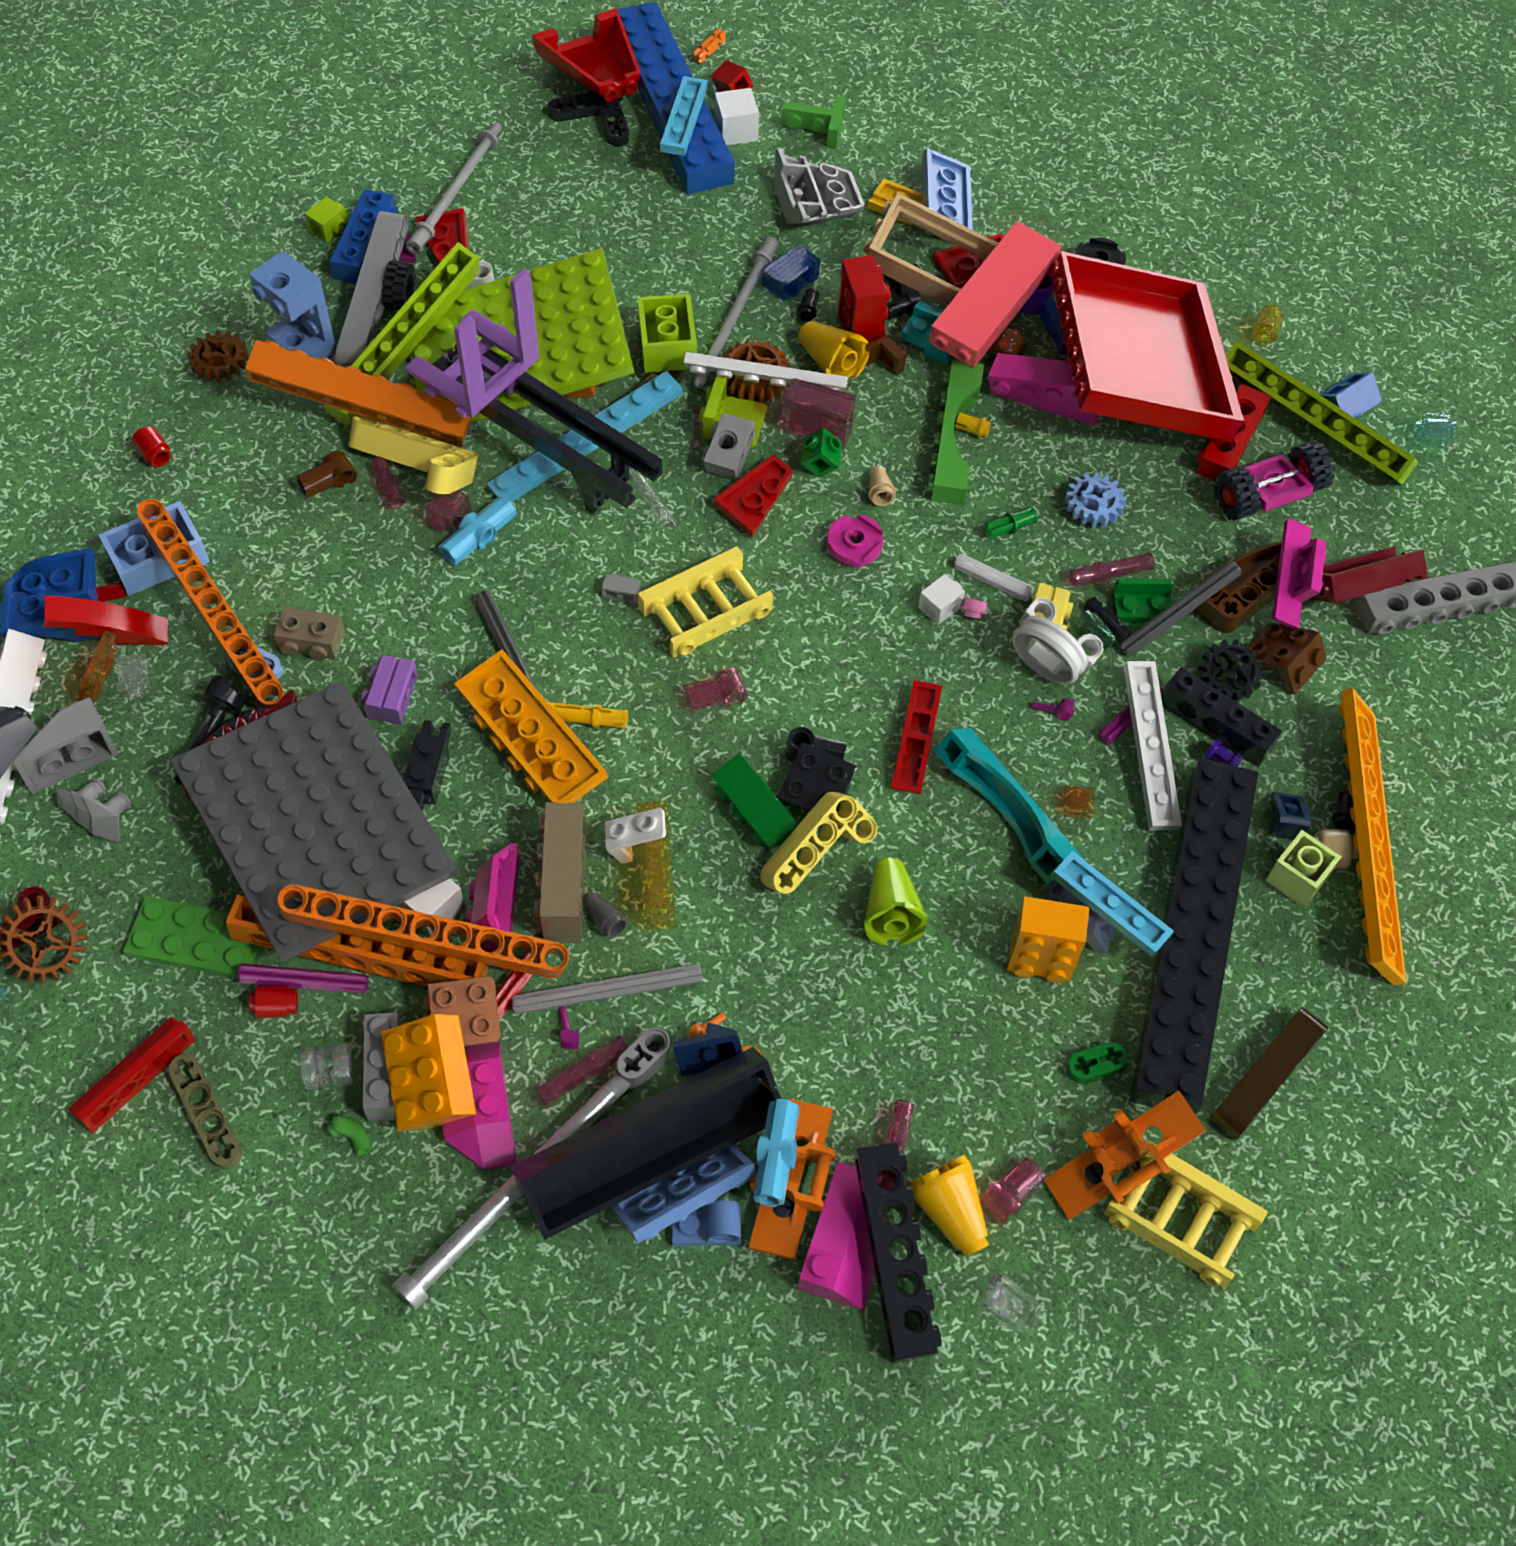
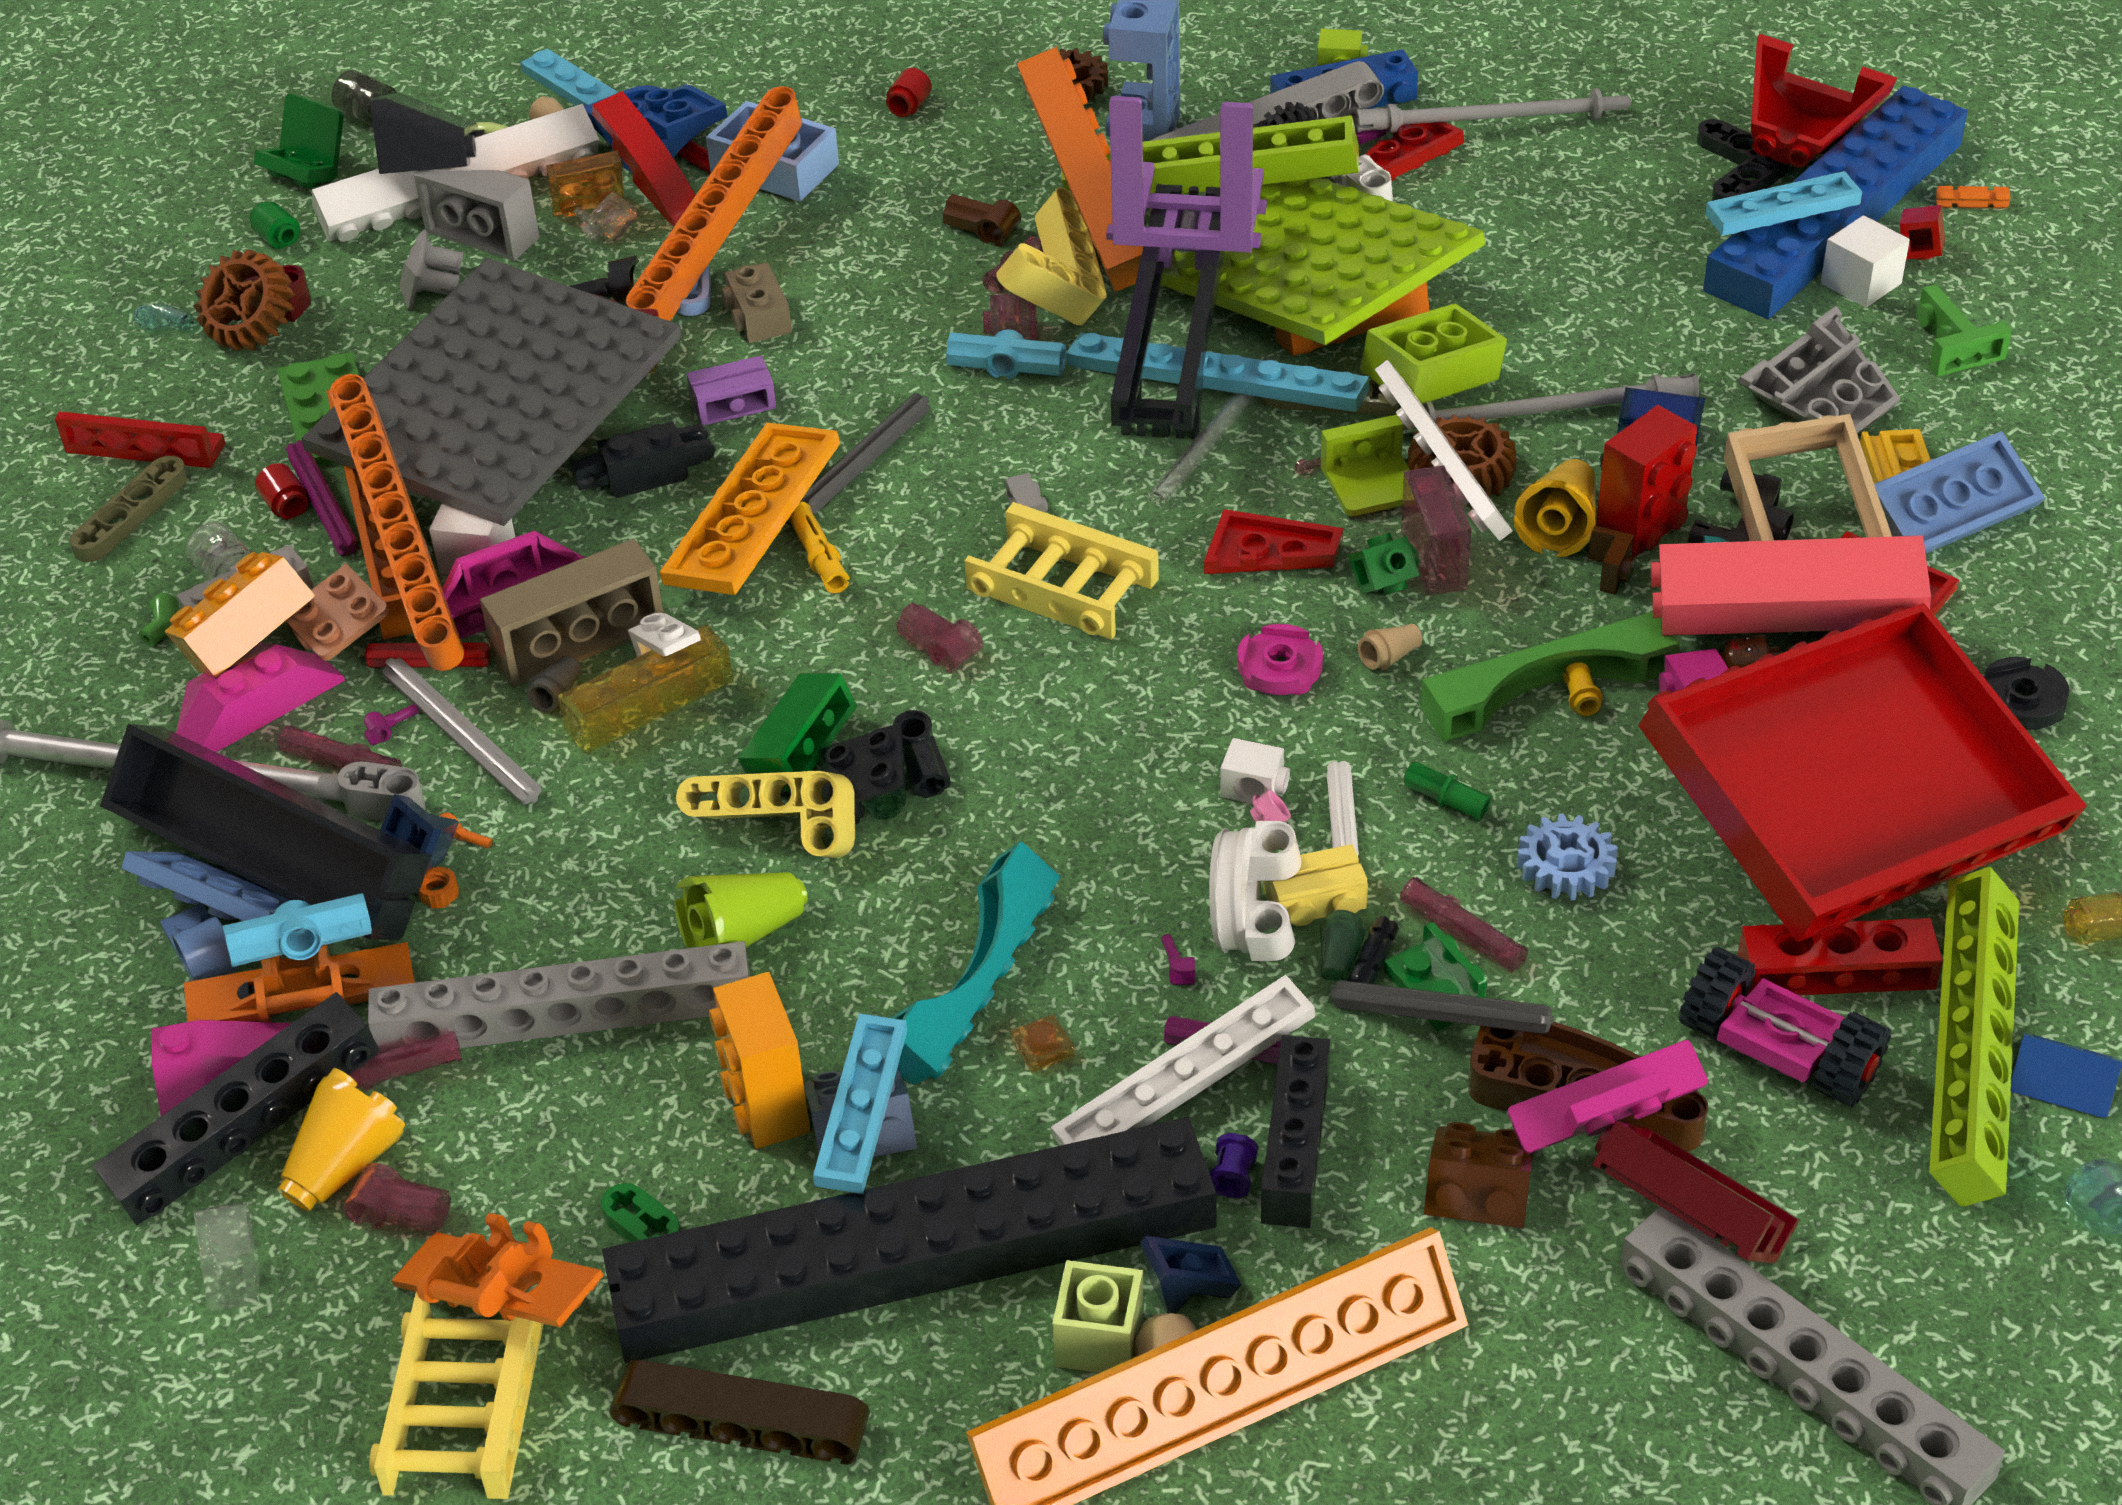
camera: 65 degrees right, 15 degrees down
(733, 431) = (1313, 484): light grey brick -> none
(903, 1031) = (557, 998): none -> light grey brick
(916, 737) = (1046, 833): red slope -> none
(1232, 653) = (1413, 1097): black gear -> none

